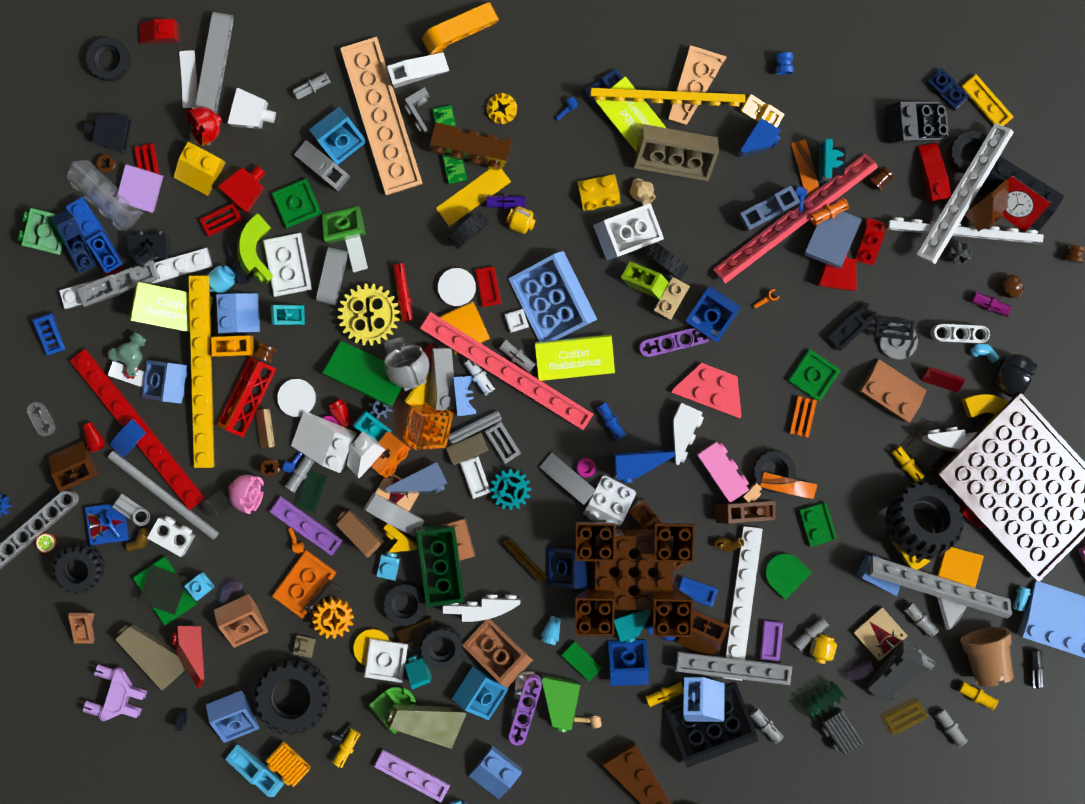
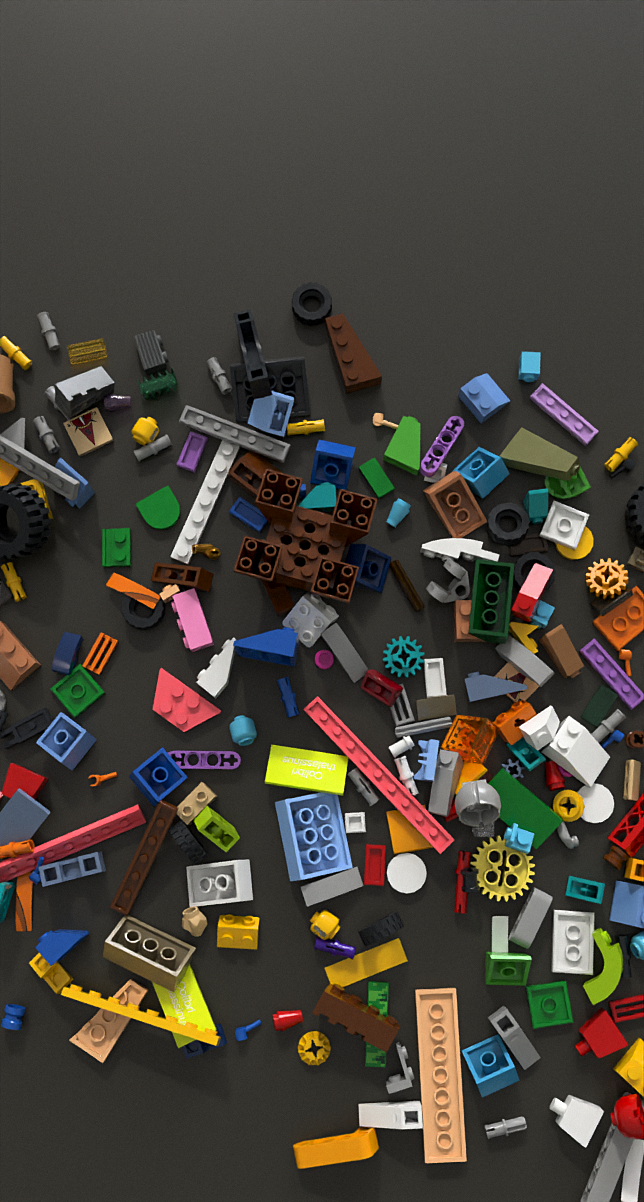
camera: 160 degrees left, 10 degrees down
(317, 359) = (570, 842): none -> light grey arm
(324, 382) = (562, 798): none -> yellow gear
(360, 345) = (518, 839): none -> medium azure bracket
(396, 295) = (470, 879): none -> black bush
(402, 583) = (531, 592): none -> slope
(476, 582) = (450, 595): none -> light grey piece
(491, 403) = (401, 746): none -> white pin
(523, 256) = (331, 886): none -> light grey slope
(524, 454) = (381, 687): none -> dark red slope
(533, 126) = (286, 1019): none -> red cone
(645, 378) = (243, 730): none -> medium azure head
(704, 236) = (144, 857): none -> reddish brown tile
(736, 751) = (252, 354): none -> black arch
(810, 324) = (66, 741): none -> medium blue slope
(835, 408) = (65, 655): none -> dark blue slope

